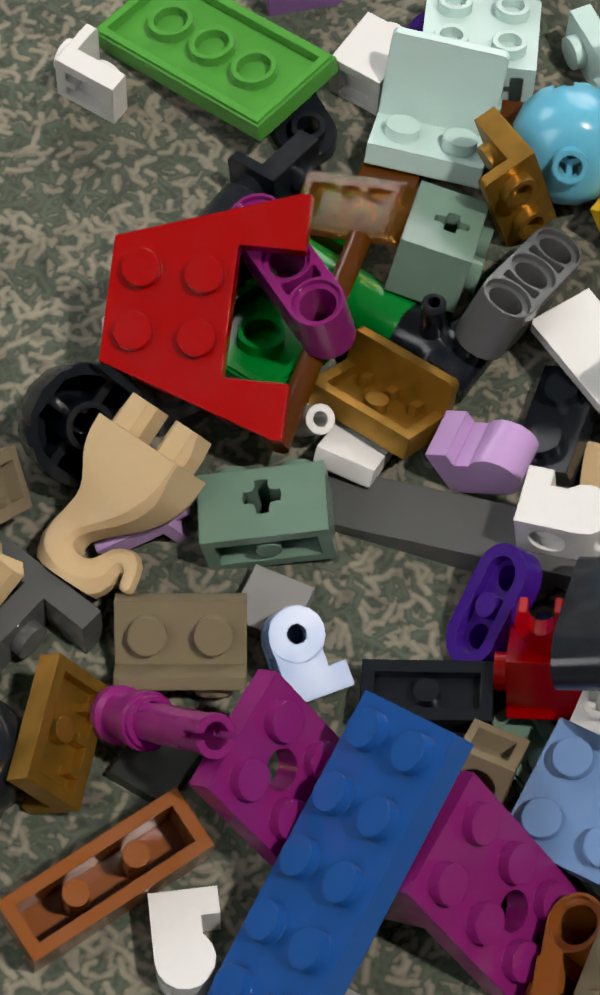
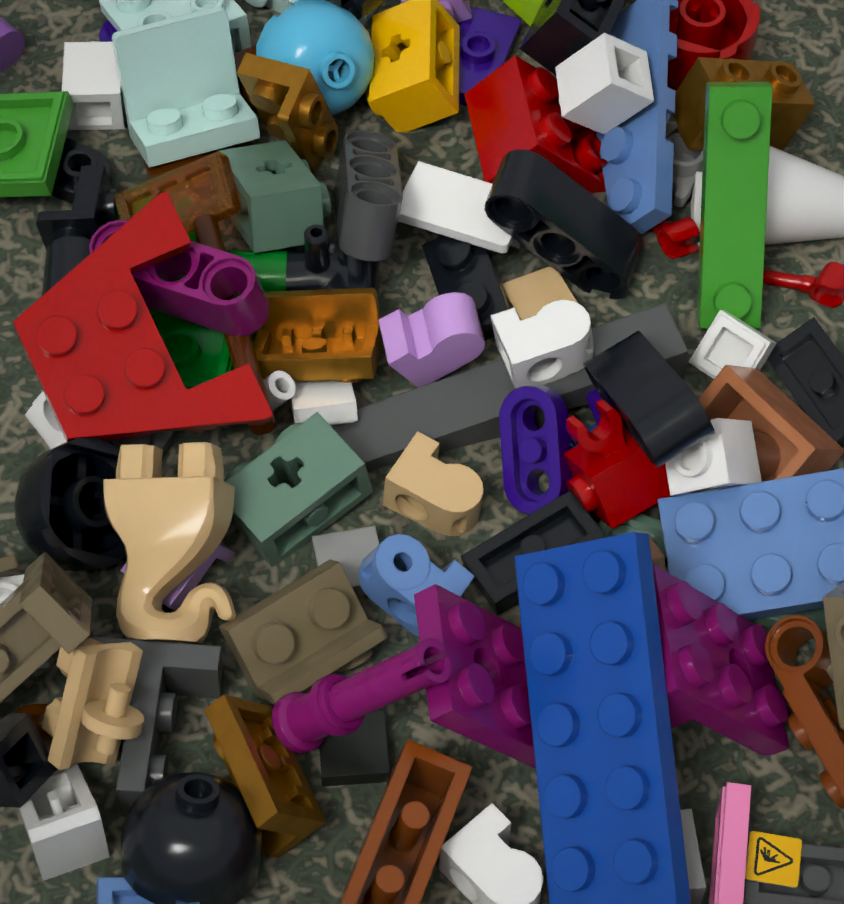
camera: 35 degrees left, 5 degrees down
(383, 589) = (432, 492): none -> tan leg

